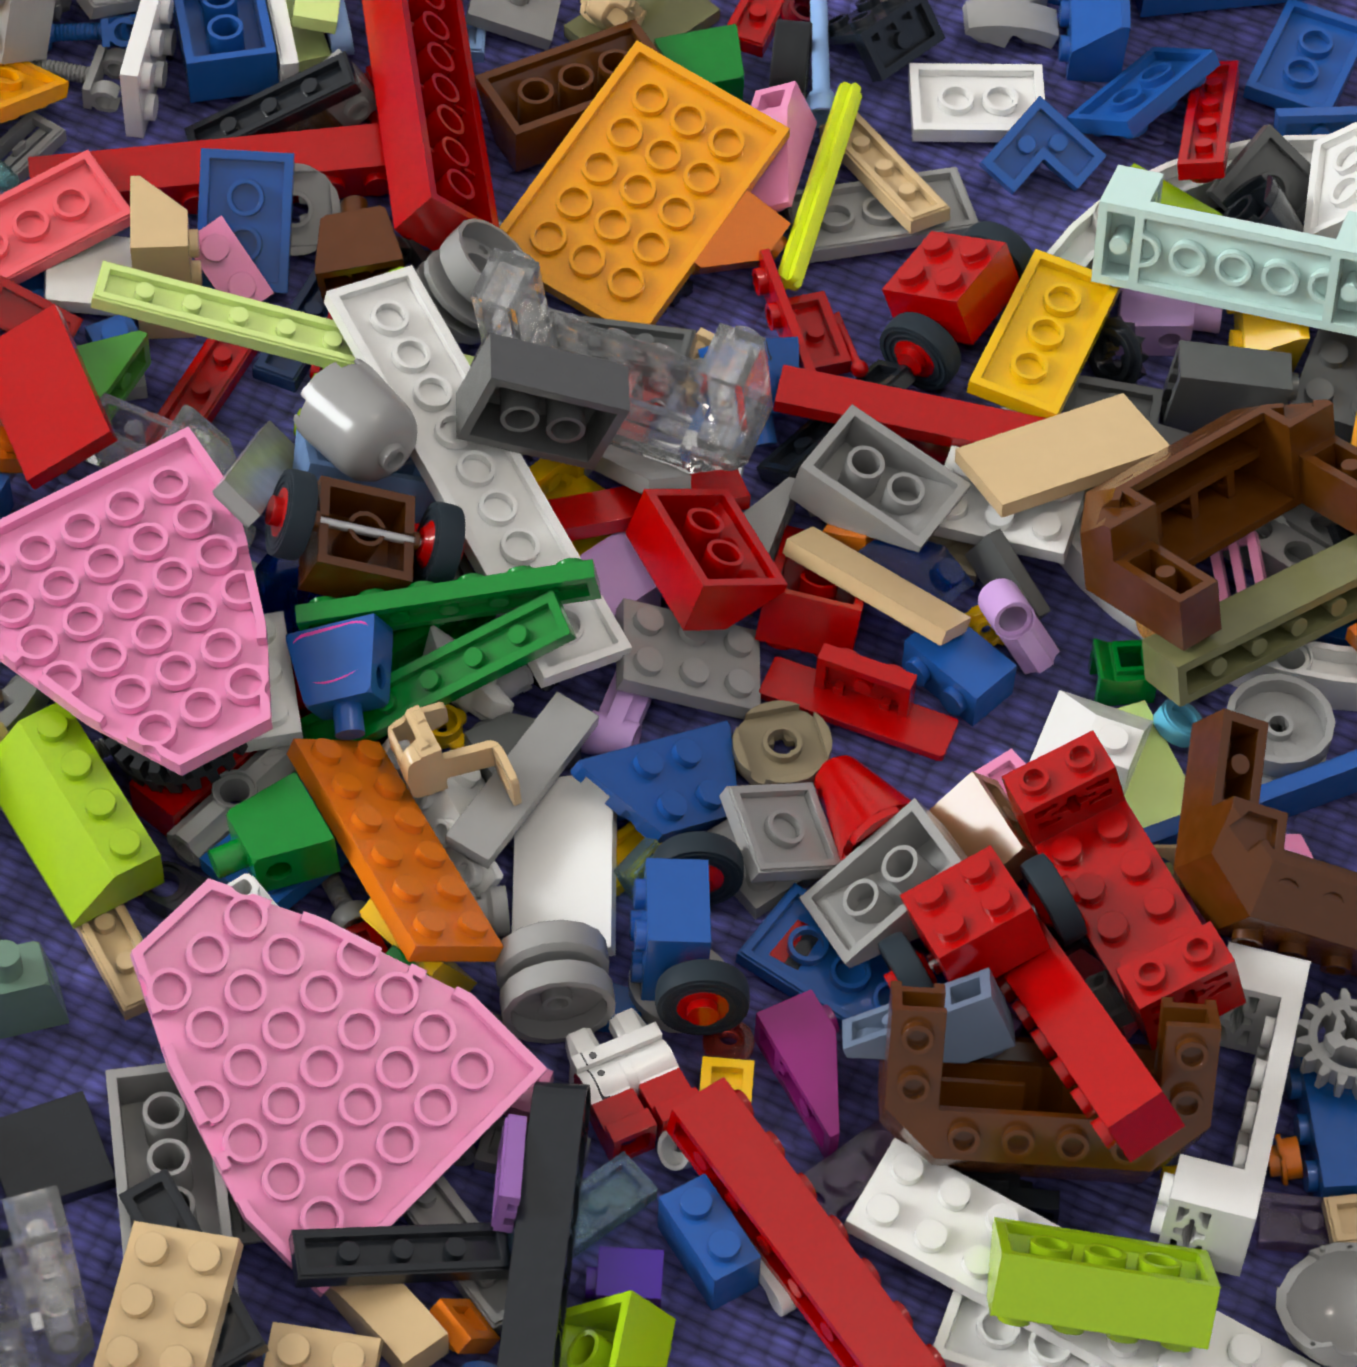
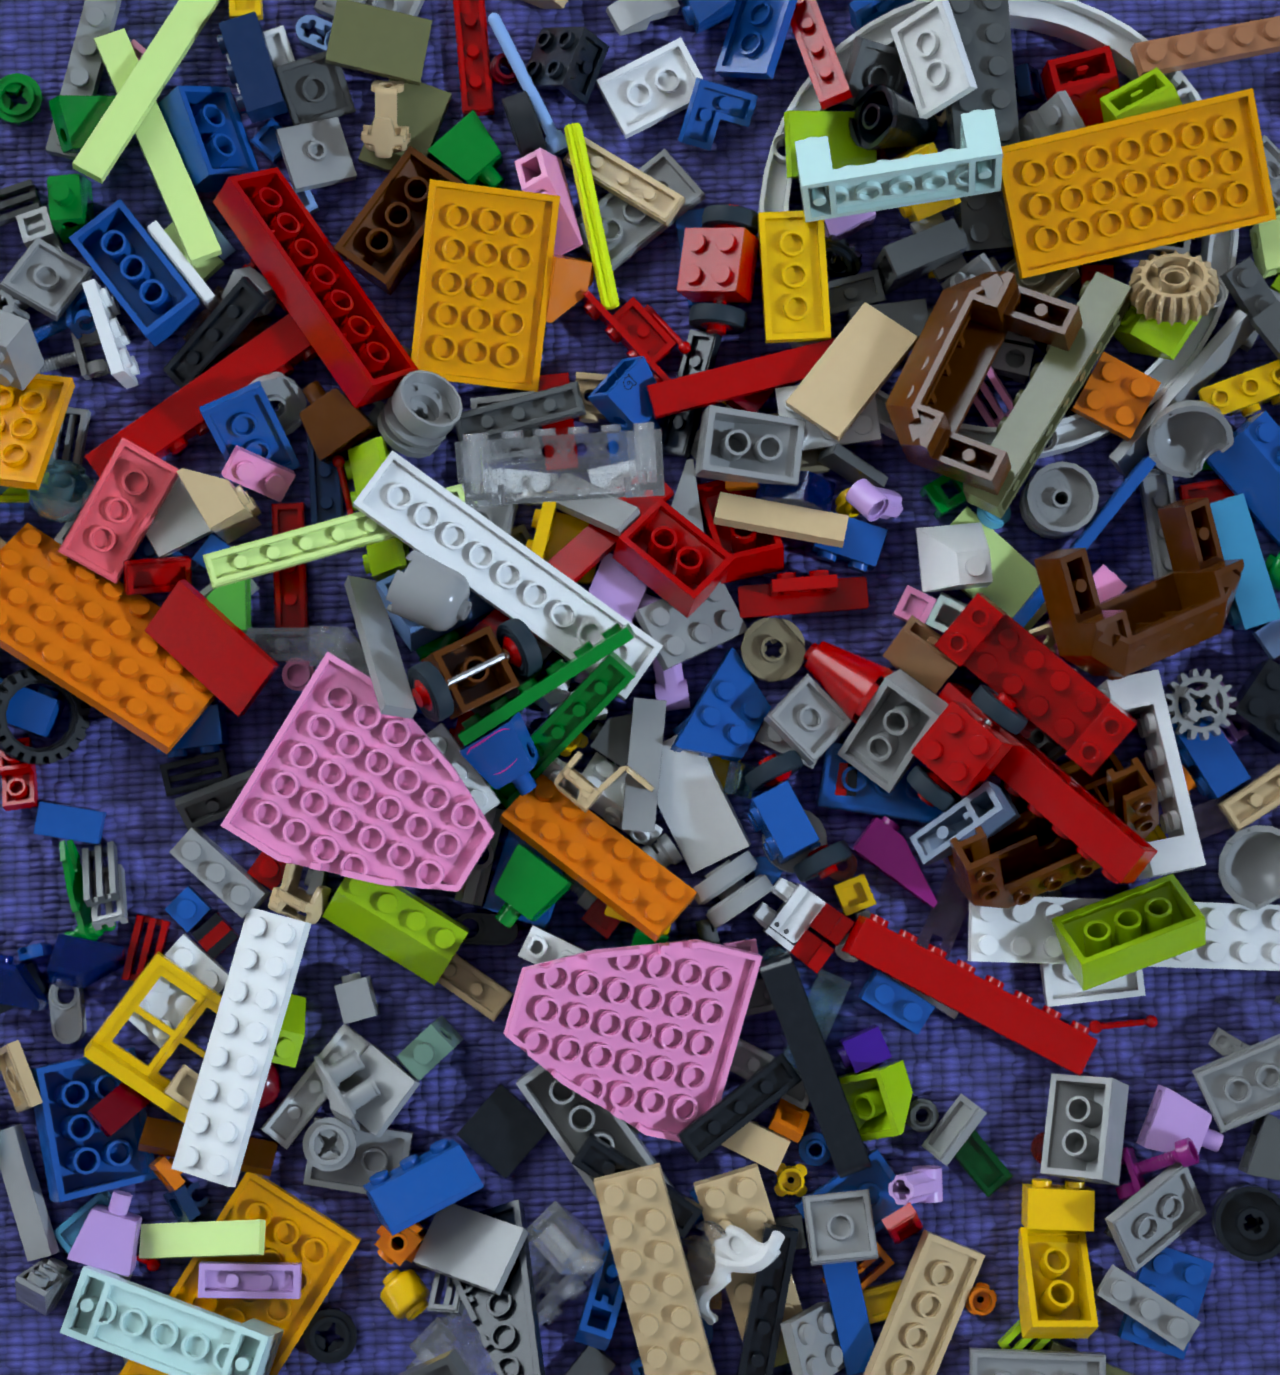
camera: 25 degrees left, 30 degrees up
(509, 1173) = (773, 1029): medium lavender tile -> none
(542, 401) = (531, 517): dark grey brick -> none

